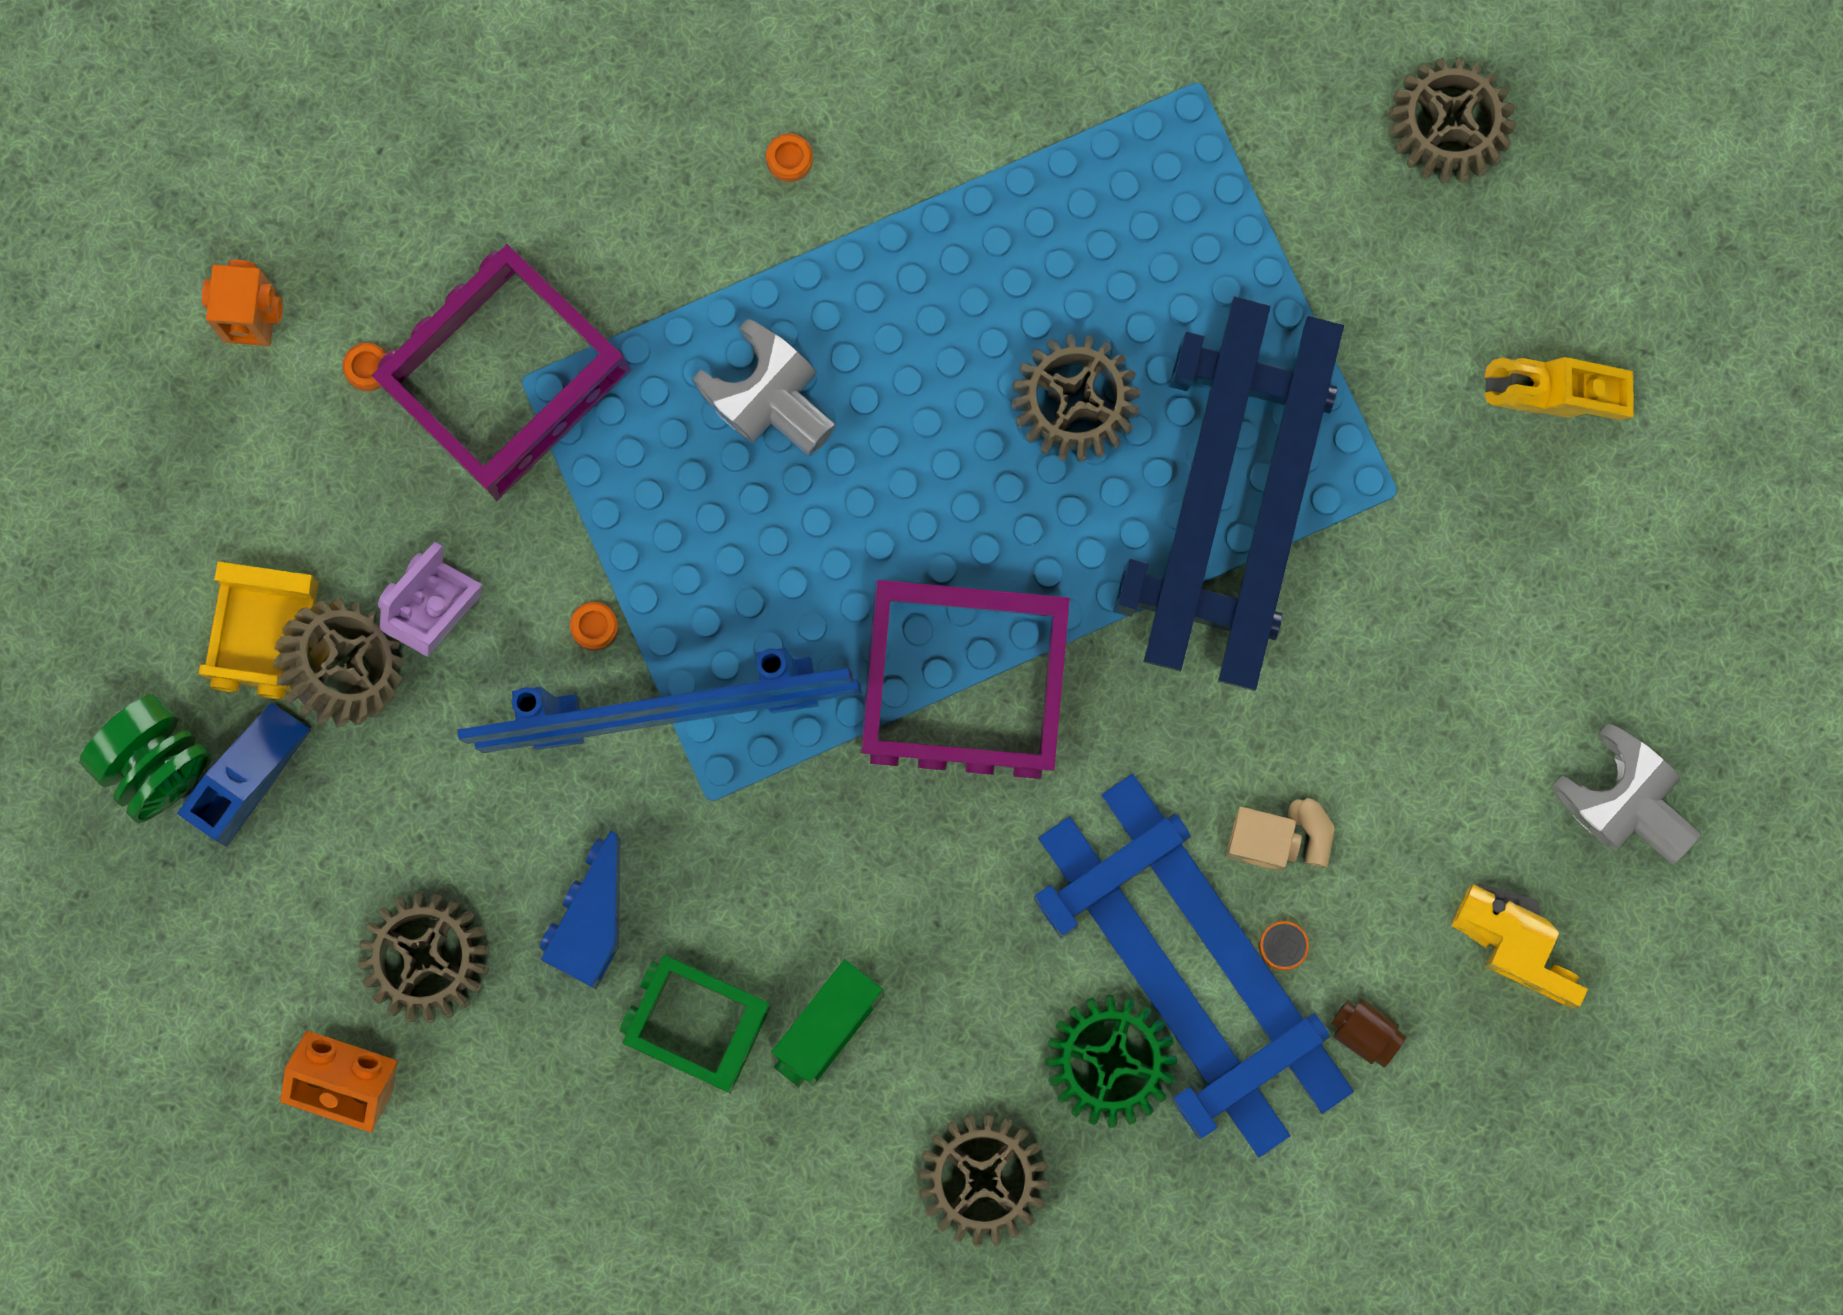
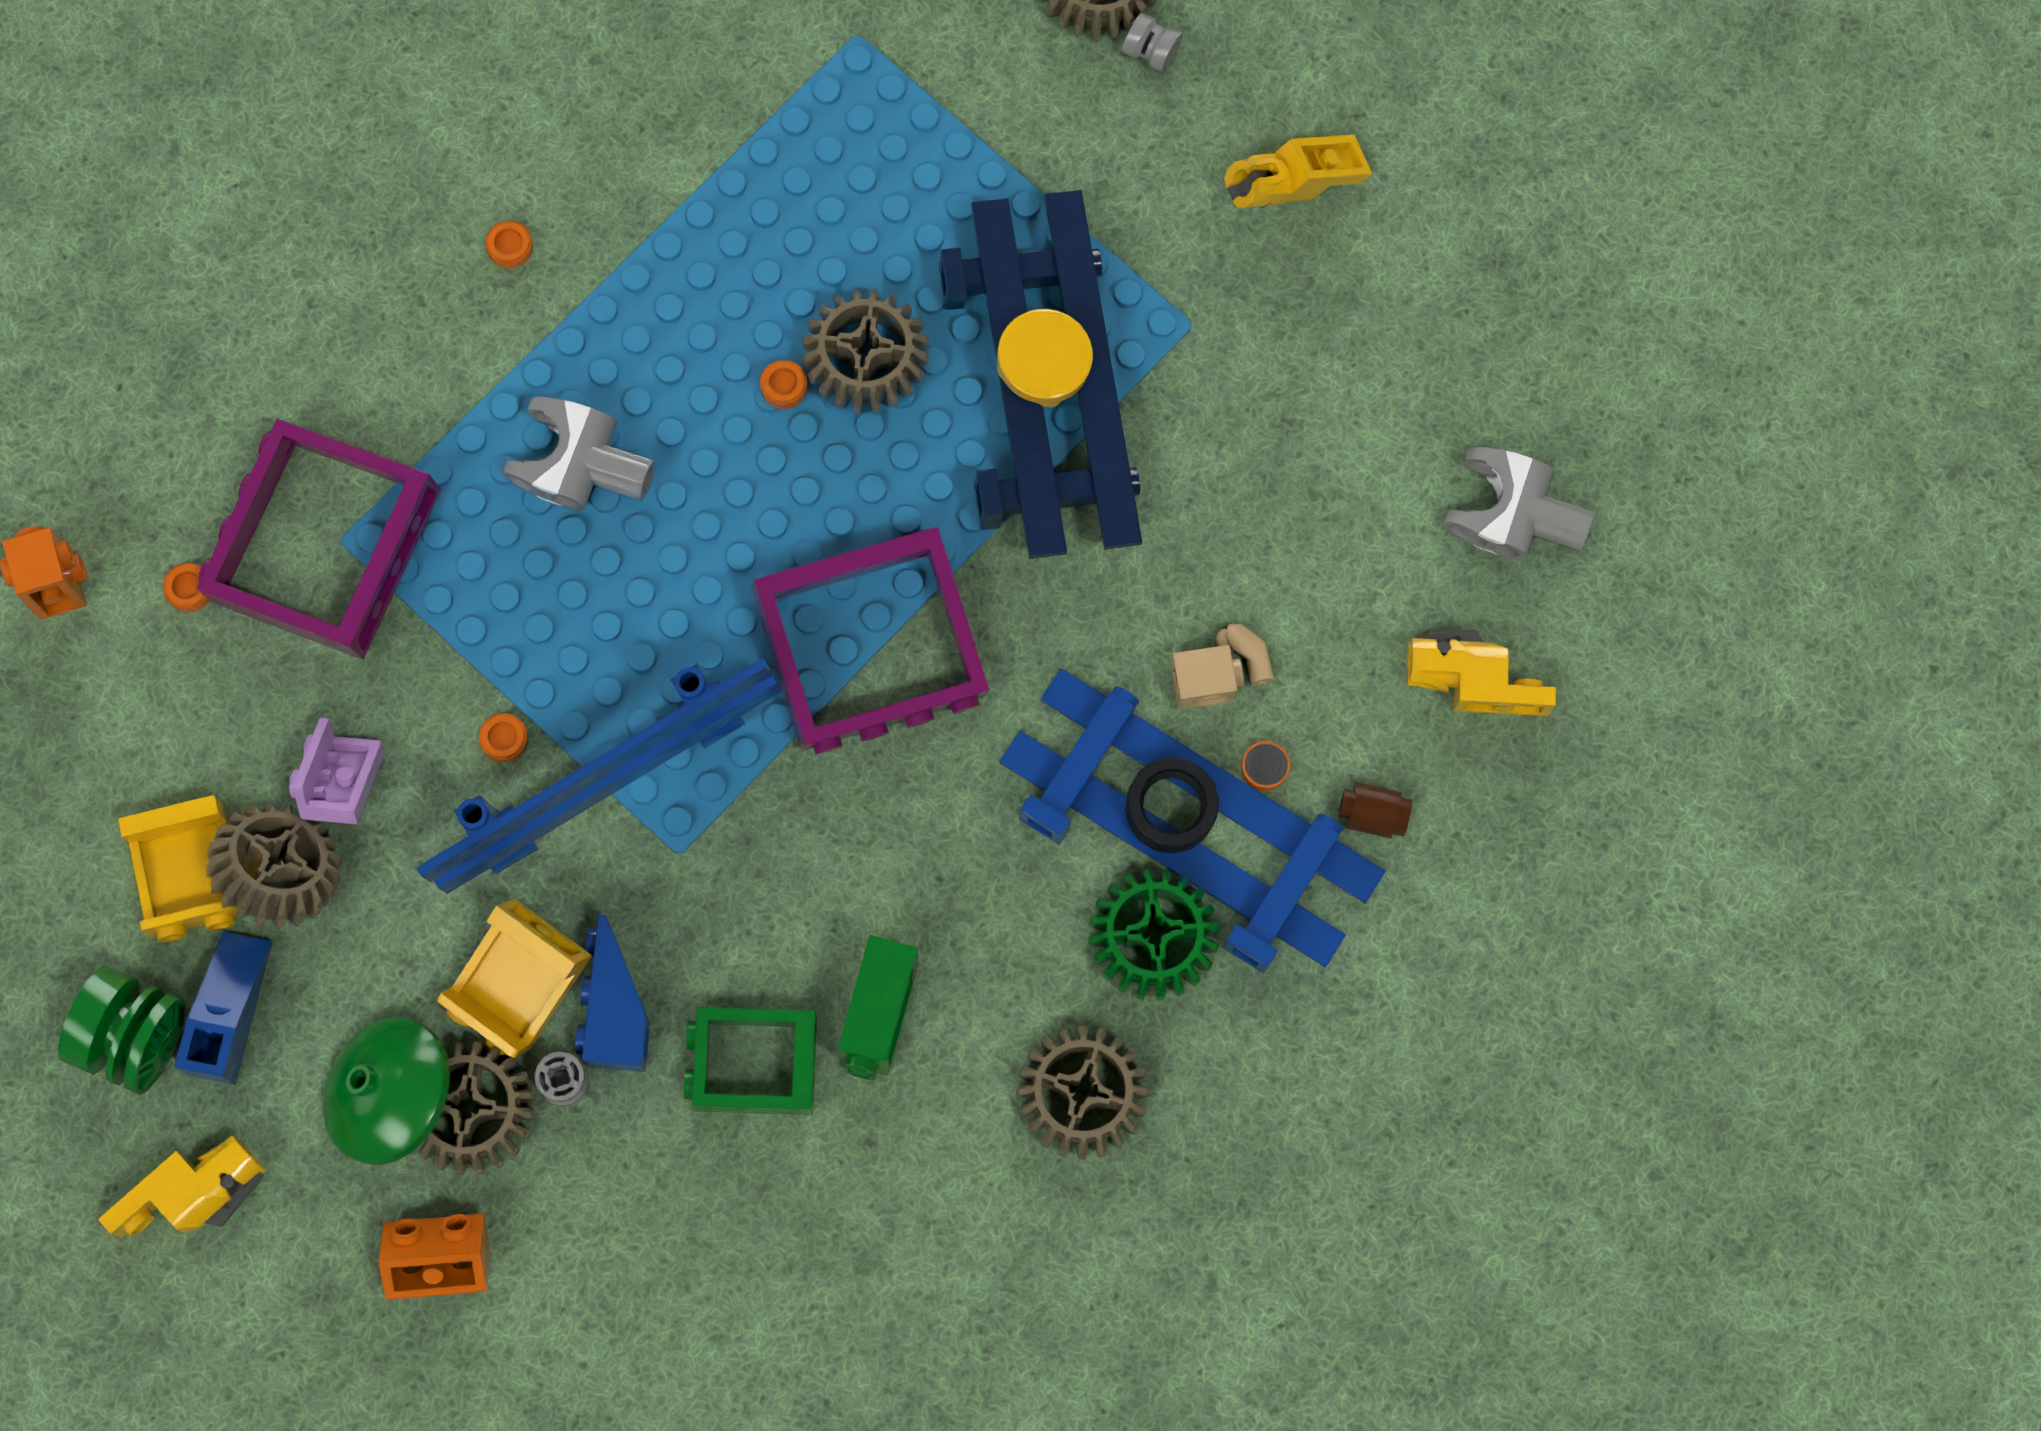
camera: 30 degrees left, 5 degrees down
(147, 929) = (188, 1193): none -> yellow plate
(356, 912) = (386, 1091): none -> green dish
(511, 858) = (514, 979): none -> yellow panel
(523, 972) = (568, 1085): none -> light grey wheel
(987, 398) = (783, 384): none -> orange tile
(1182, 911) = (1177, 769): none -> black tyre
(1238, 476) = (1044, 356): none -> yellow tile
(1477, 203) = (1152, 42): none -> light grey wheel

